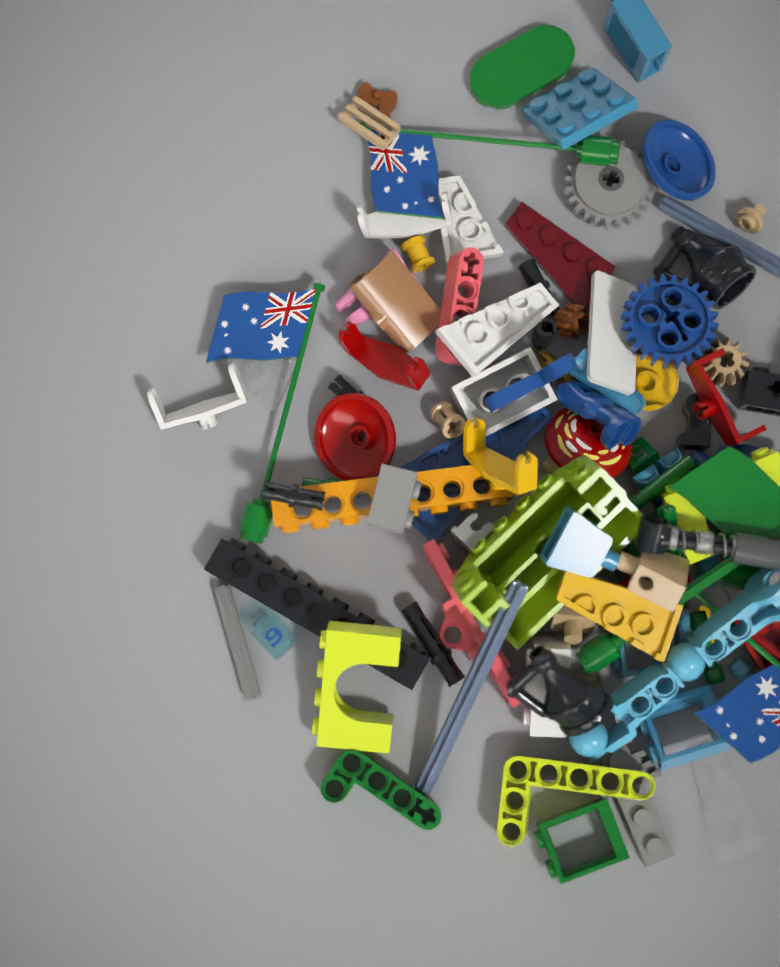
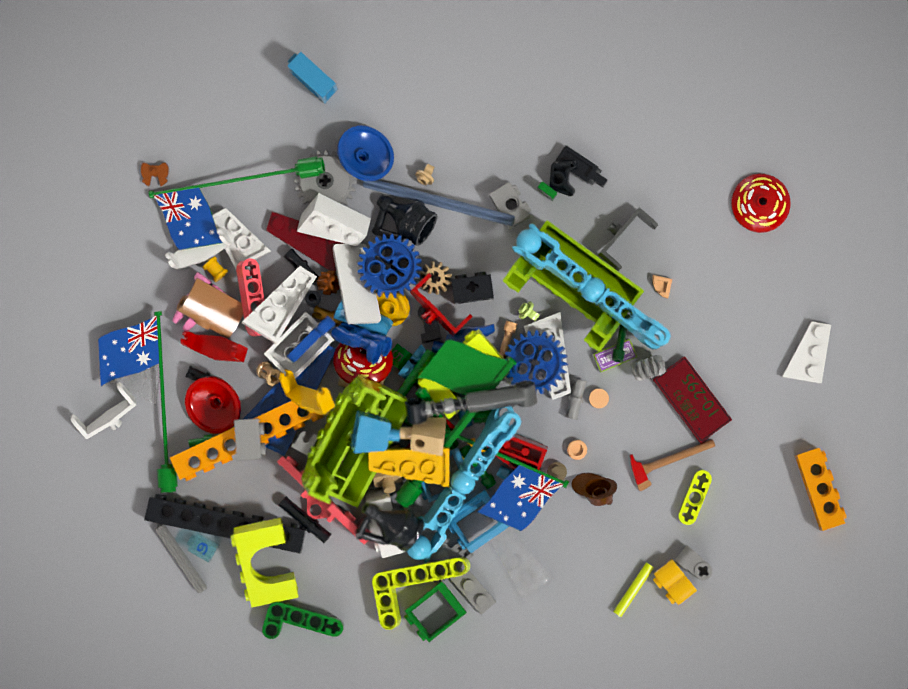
camera: 15 degrees left, 5 degrees up
(293, 495) = (185, 456): black pin -> none
(353, 110) = (157, 184): tan tile -> none
(471, 687) = (334, 541): sand blue axle -> none
(522, 67) = (244, 118): green tile -> none
(579, 107) = (289, 139): dark azure plate -> none
(606, 237) = (333, 221): none -> white wedge

